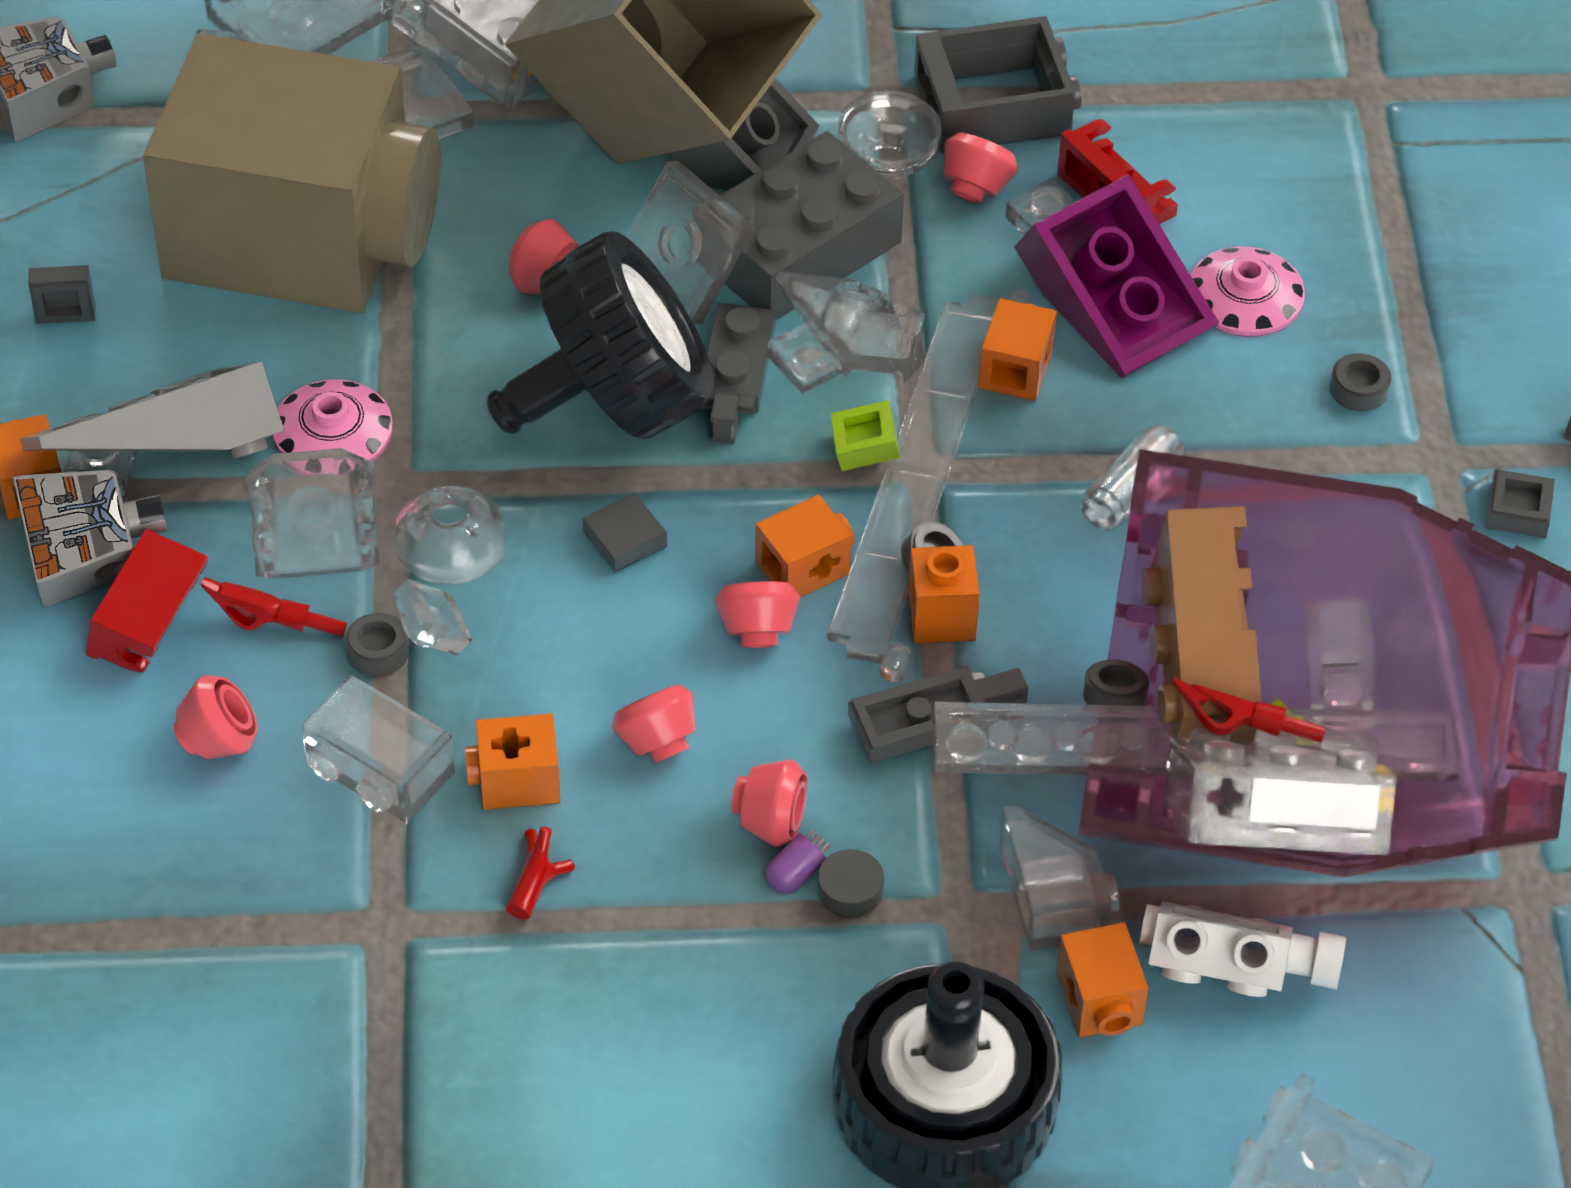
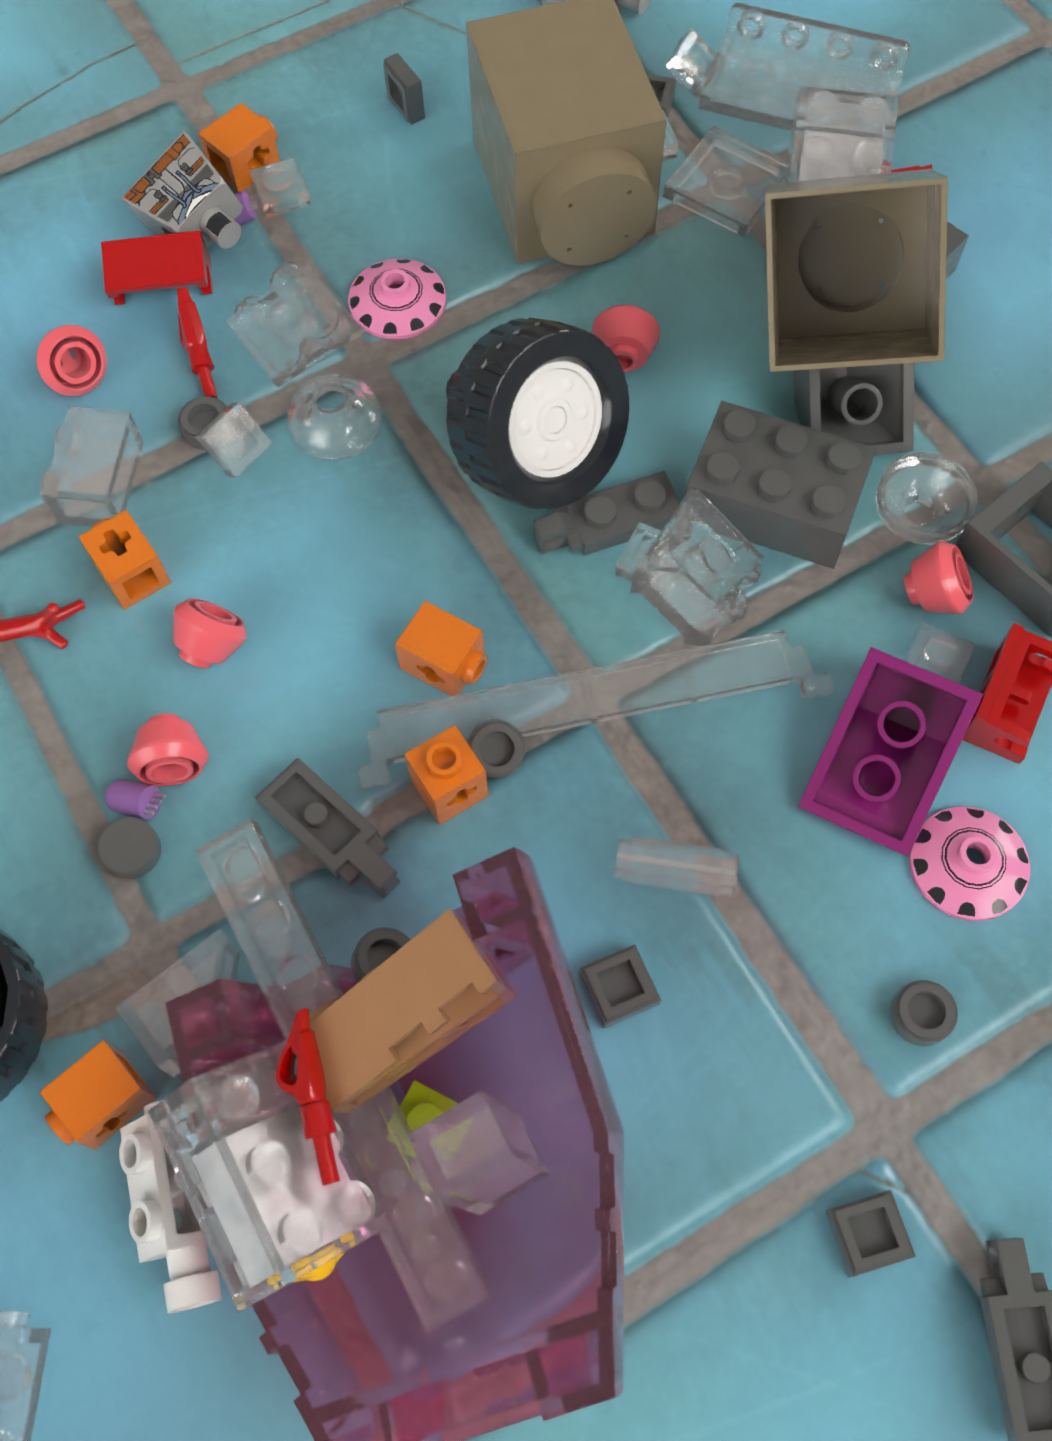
camera: 65 degrees right, 15 degrees up
(203, 413) = (332, 214): light grey wedge -> none
(624, 532) = (398, 523): dark grey tile -> none
(690, 237) = (693, 412): clear tile -> none
(757, 611) = (356, 647): coral cone -> none
(865, 435) = (589, 638): lime plate -> none
(1017, 349) = (759, 706): orange brick -> none

